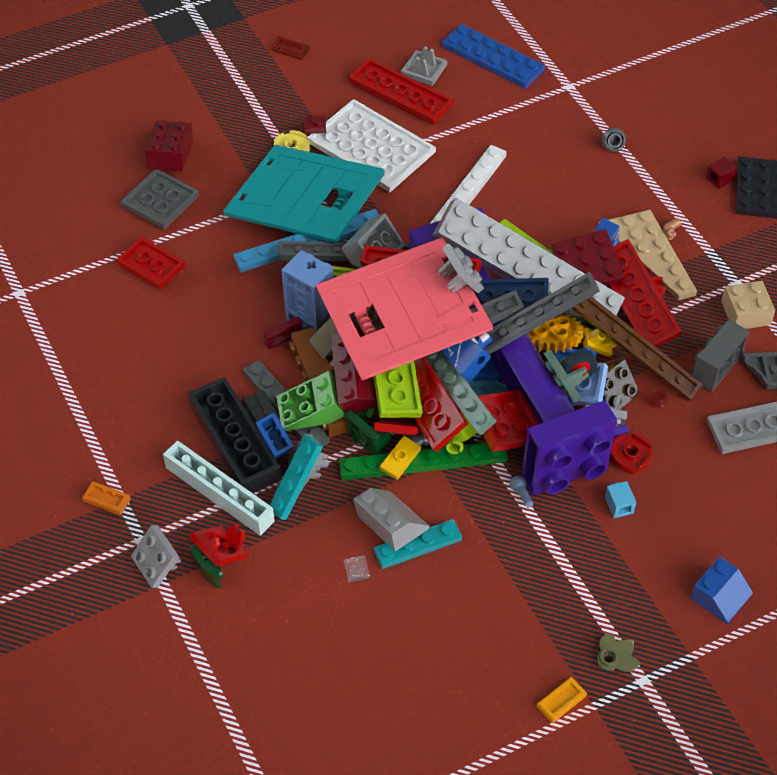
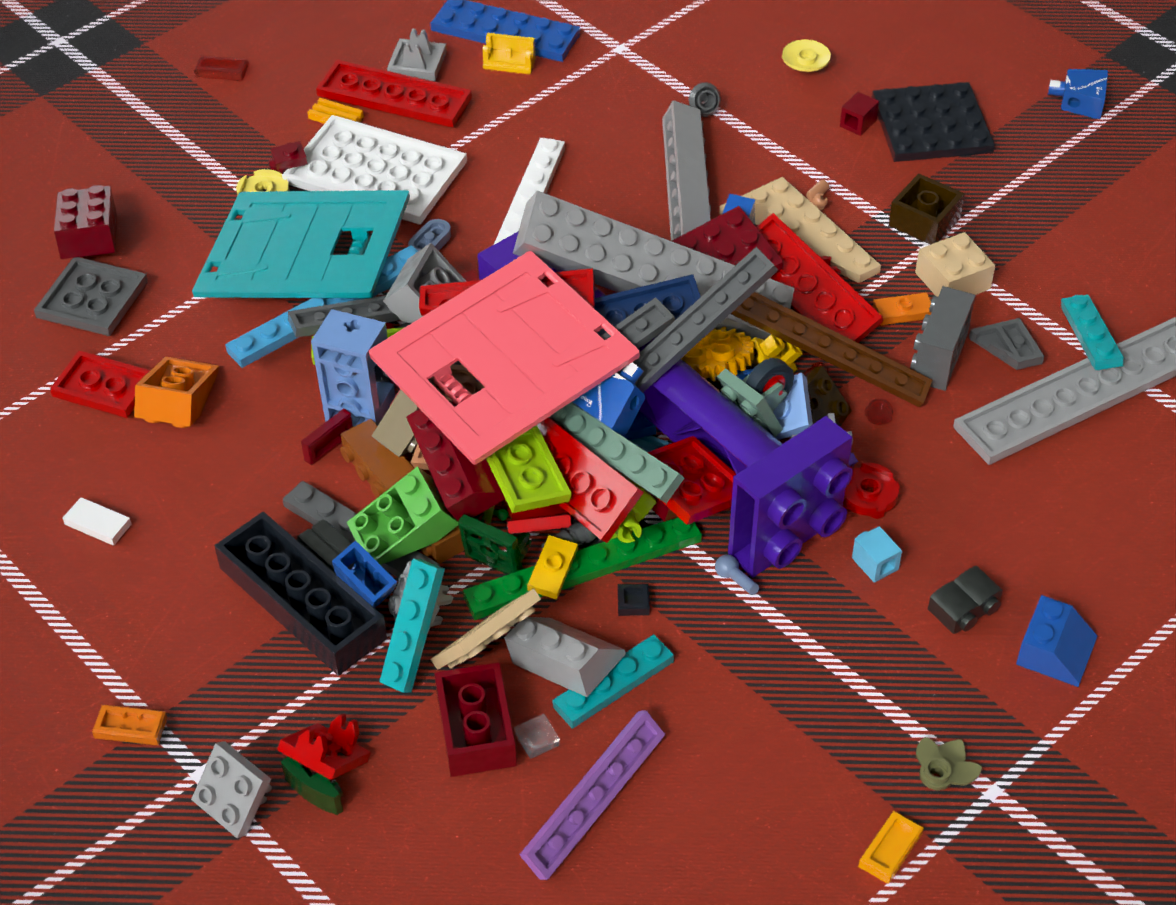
camera: 15 degrees left, 5 degrees down
(122, 357) = (97, 521): none -> white tile
(194, 278) = (174, 391): none -> orange slope
(219, 488) = (299, 669): light aqua brick -> none
(319, 548) = (475, 719): none -> dark red brick
(343, 492) = (487, 631): none -> tan plate
(358, 95) = (325, 108): none -> light orange tile
(379, 616) = (592, 795): none -> medium lavender plate
(391, 205) = (435, 232): none -> sand blue plate
(448, 491) = (633, 599): none -> black tile
(463, 266) = (567, 274): light grey plate -> none
(488, 76) = (509, 53): none -> yellow hinge
(583, 190) = (685, 169): none -> light grey brick
(669, 546) = (965, 600): none -> pearl dark grey brick
(698, 119) = (806, 55): none -> light yellow dish
(700, 326) = (903, 308): none -> orange plate
(742, 256) = (926, 209): none -> dark brown brick

